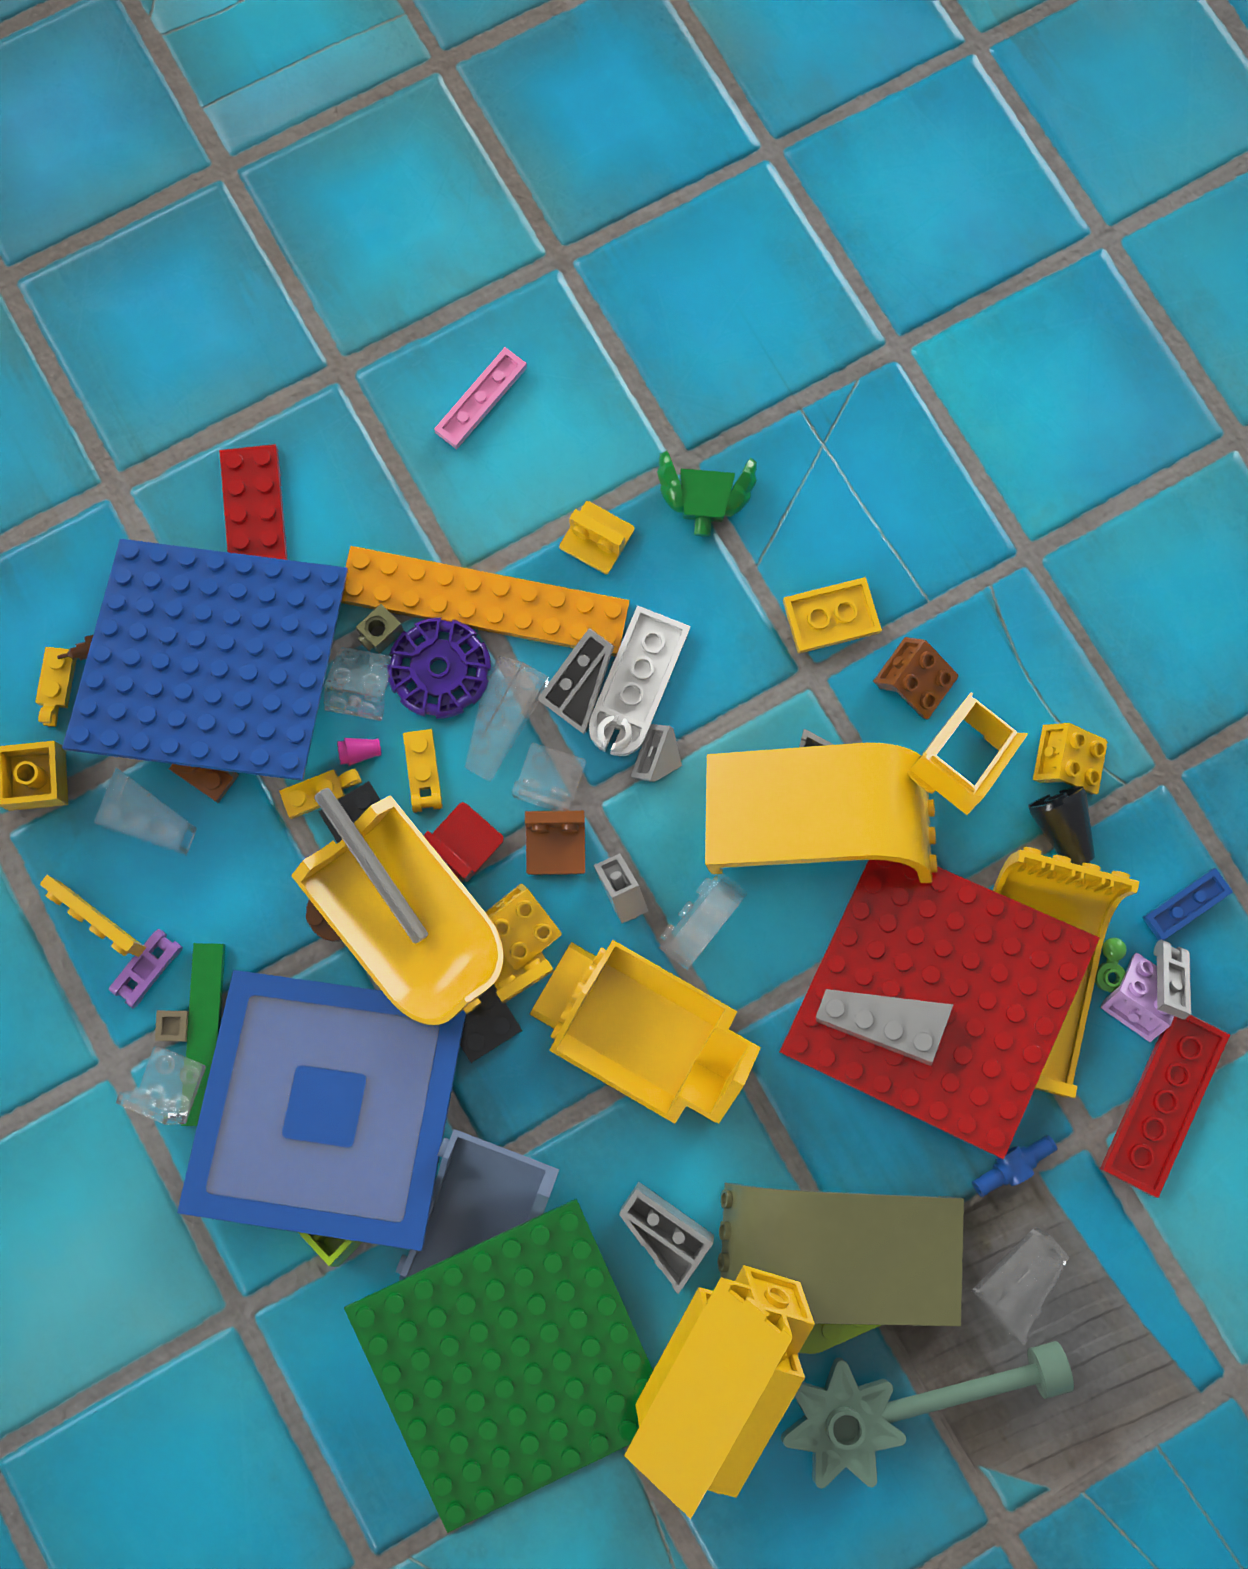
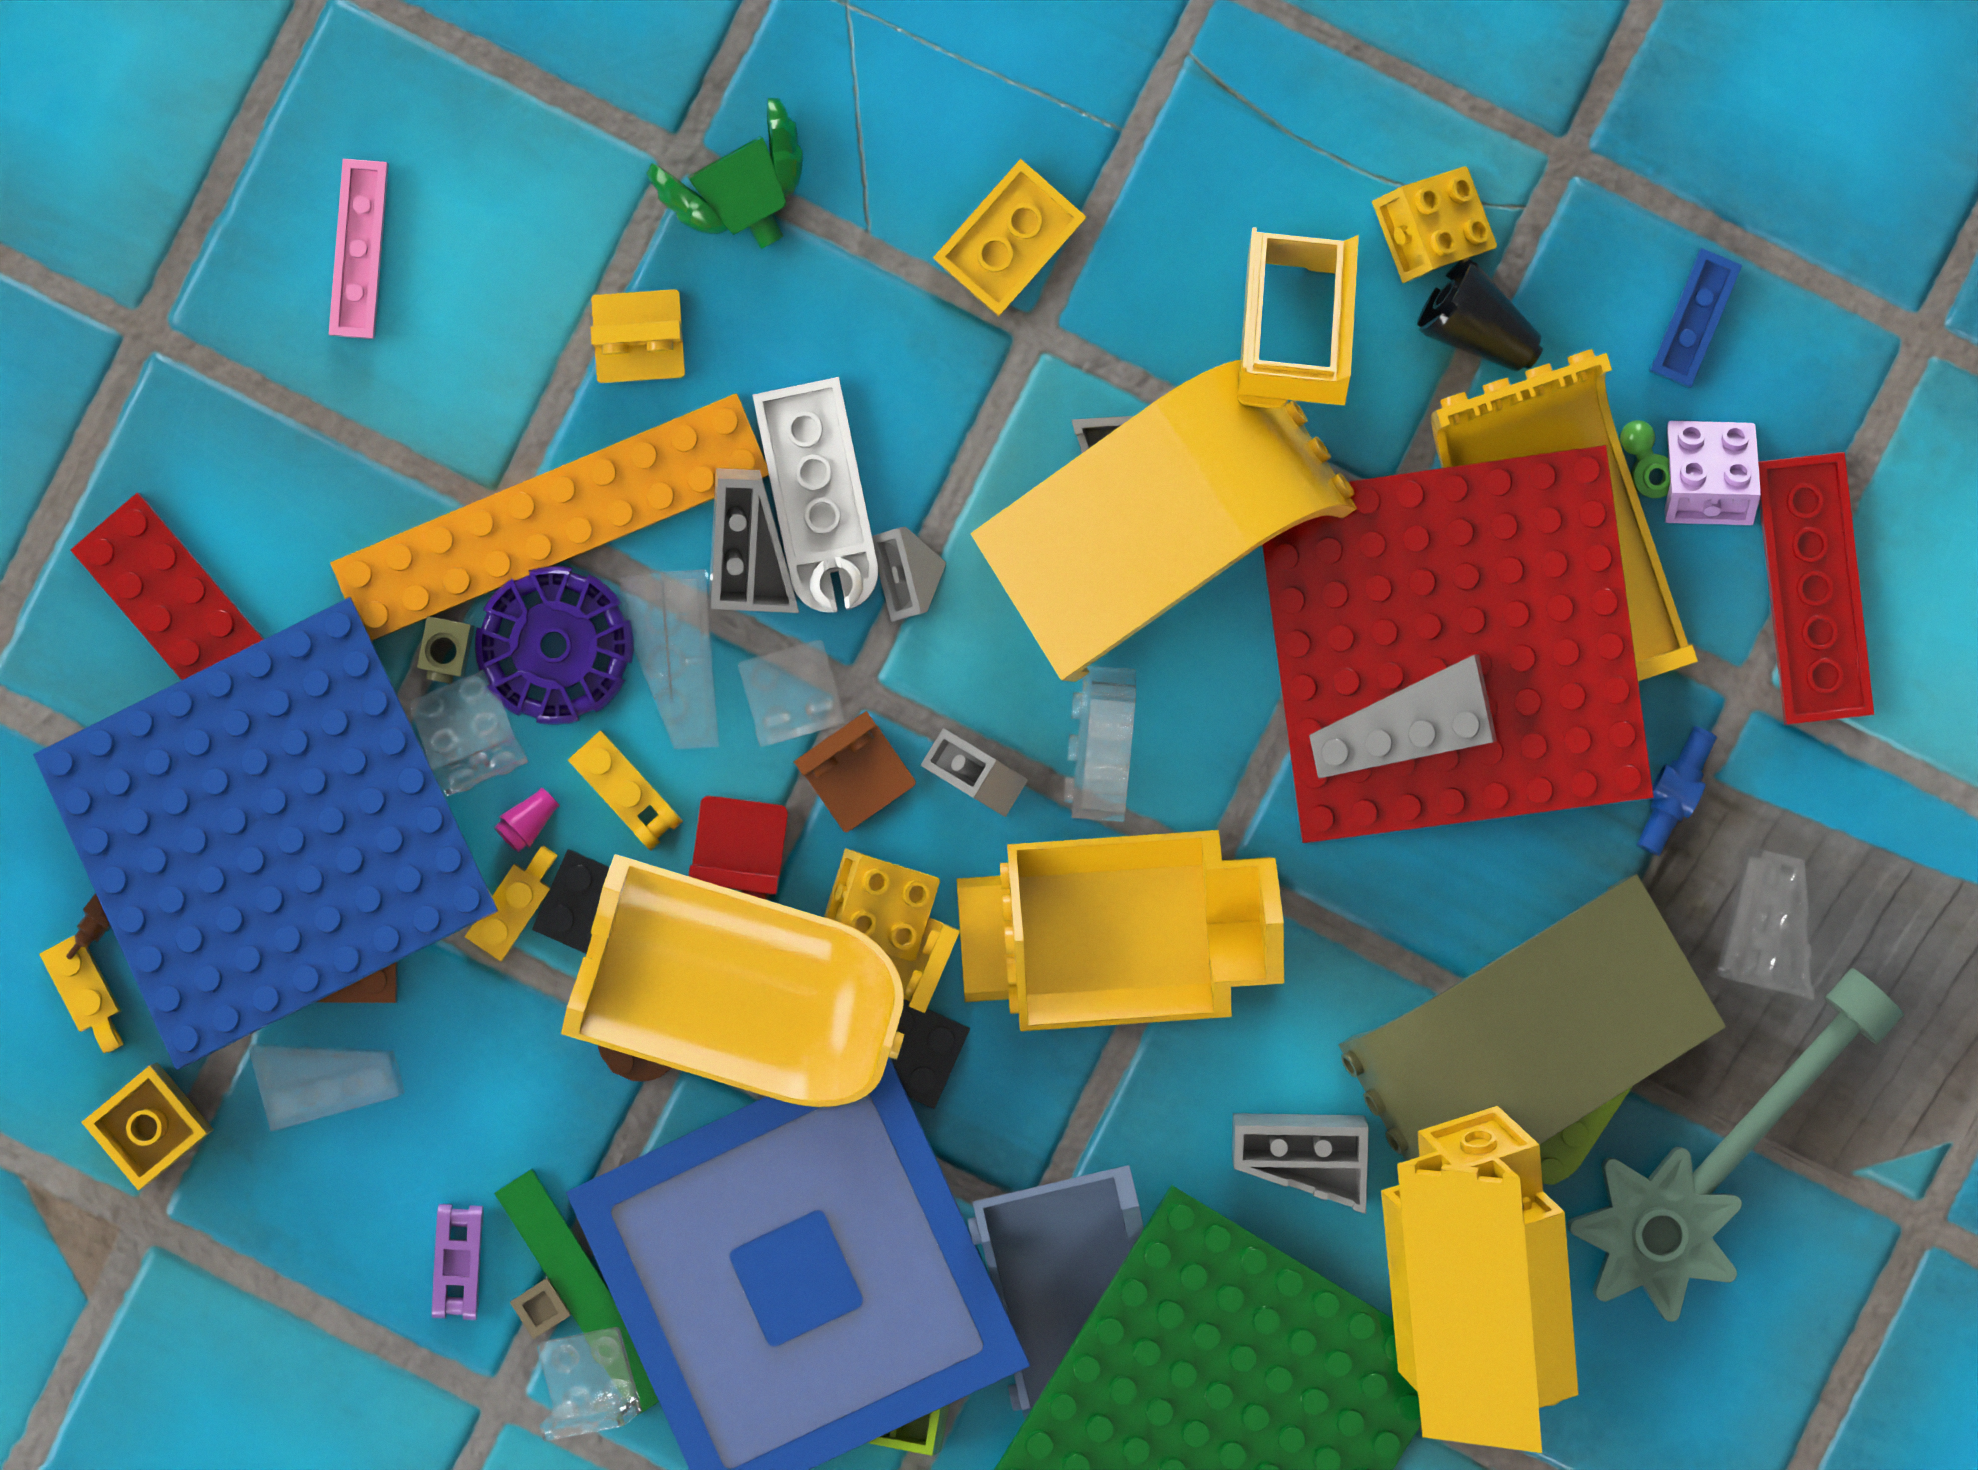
camera: 25 degrees left, 10 degrees up
(100, 924) = (368, 1246): yellow plate -> none
(371, 865) = (652, 956): light grey axle -> none
(917, 675) = (1170, 246): dark orange bracket -> none
(1173, 980) = (1730, 432): light grey plate -> none

